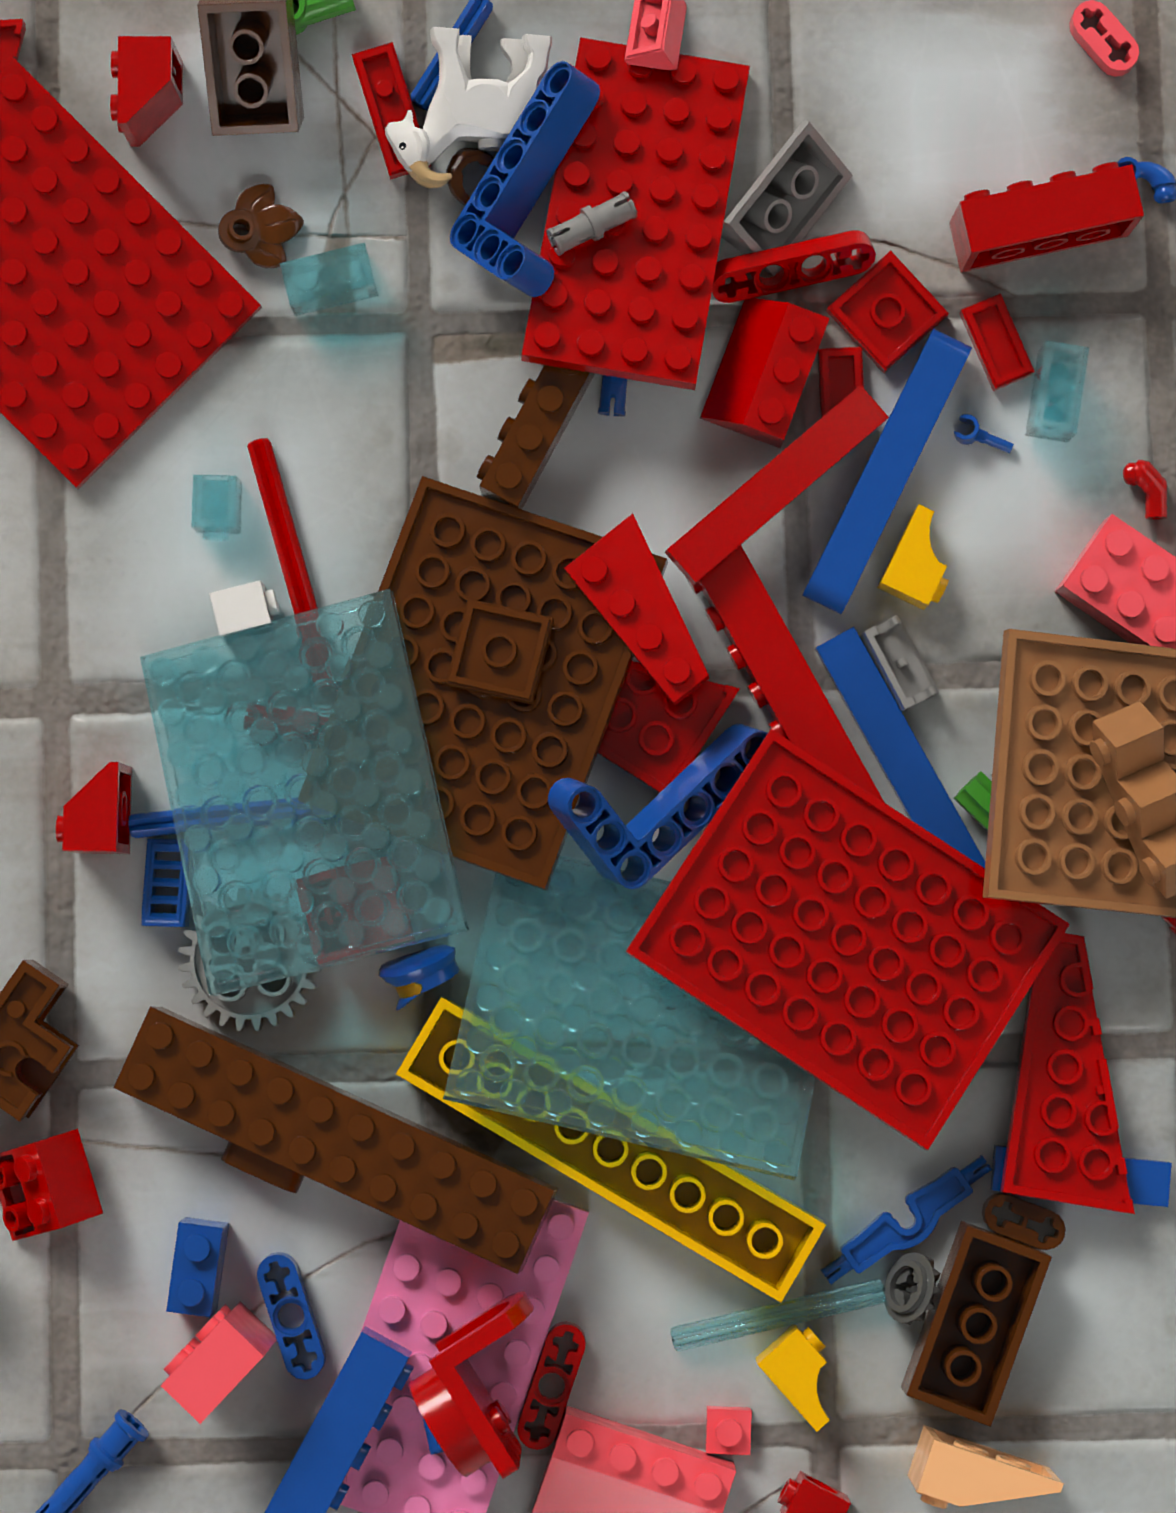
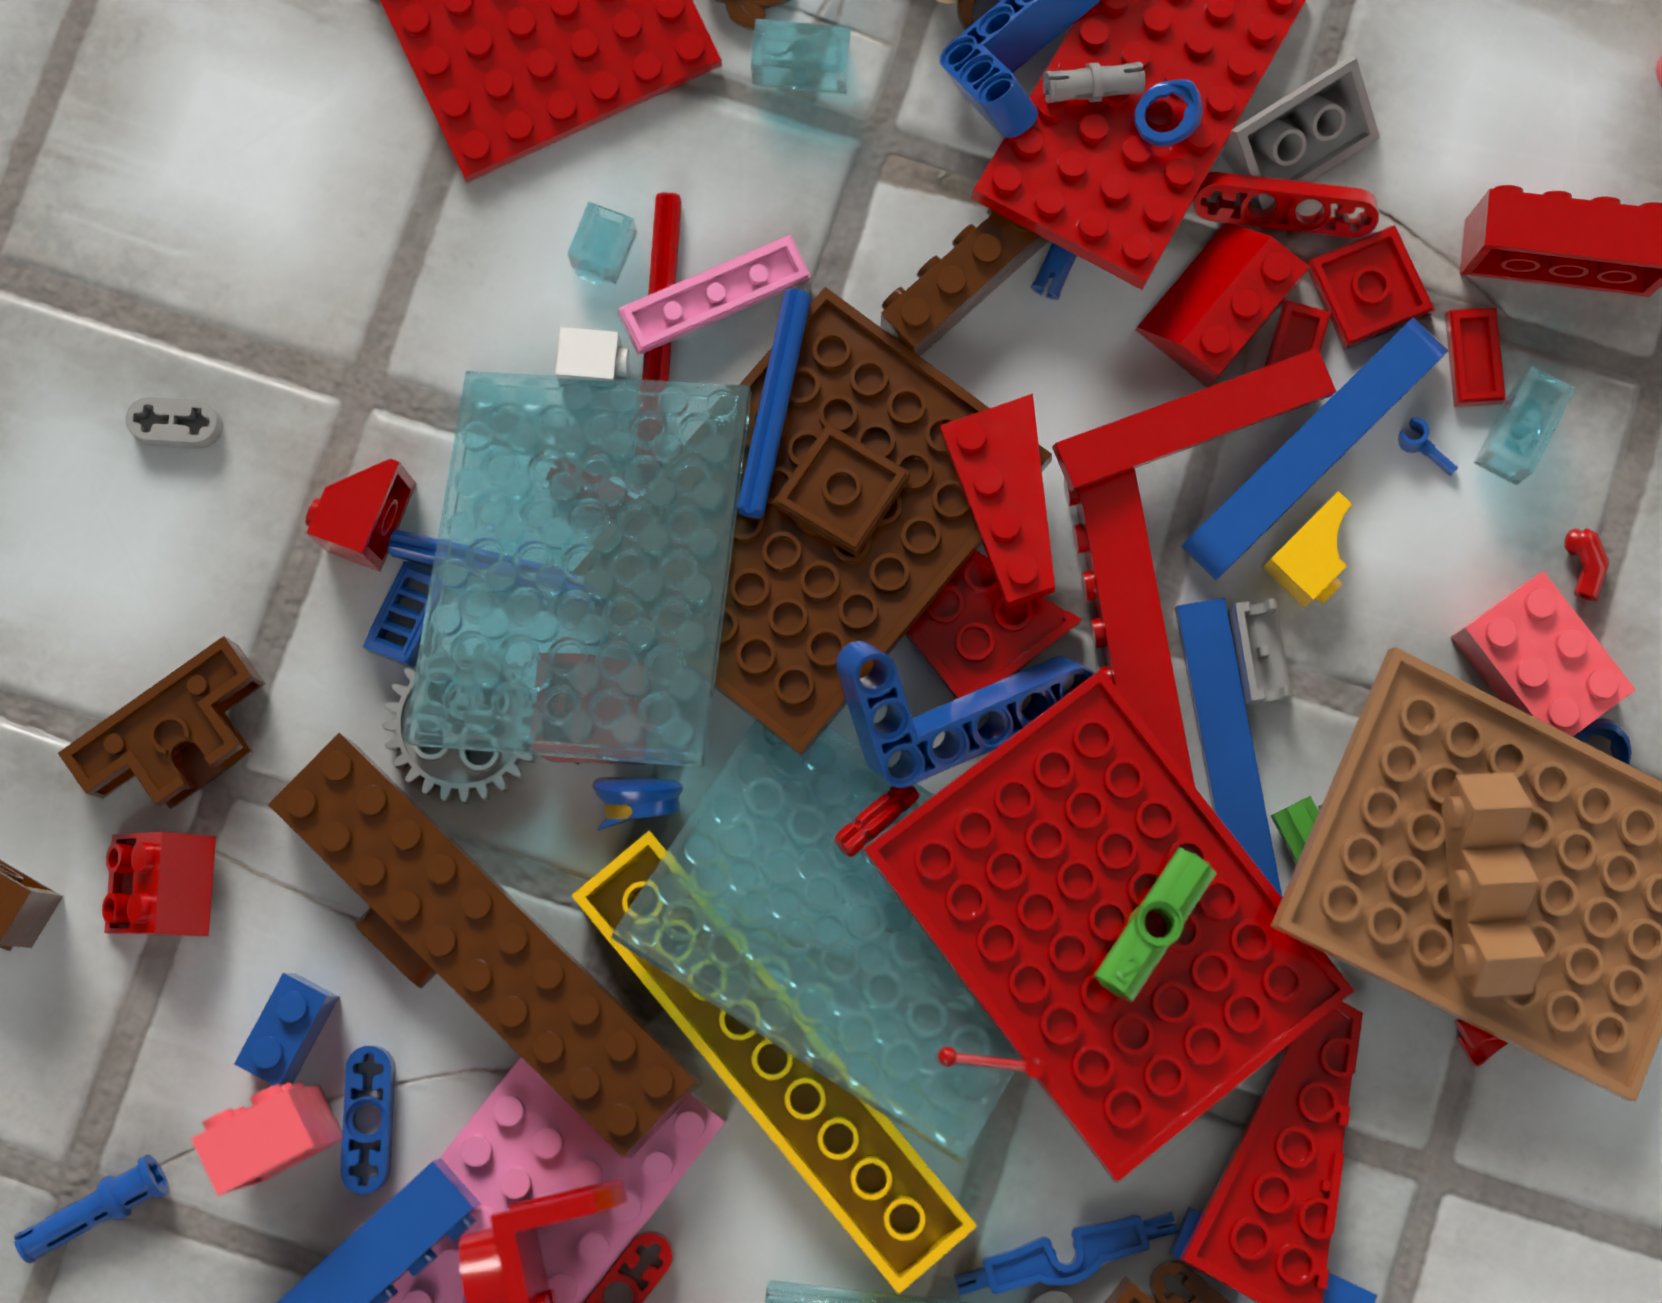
camera: 20 degrees right, 5 degrees down
(329, 516) = (713, 294): none -> bright pink tile
(415, 595) = (773, 403): none -> blue axle
(626, 921) = (875, 819): none -> red axle
(686, 225) = (1192, 115): none -> blue piece
(828, 1082) = (1034, 1067): none -> red hinge
(895, 901) = (1138, 952): none -> bright green piece

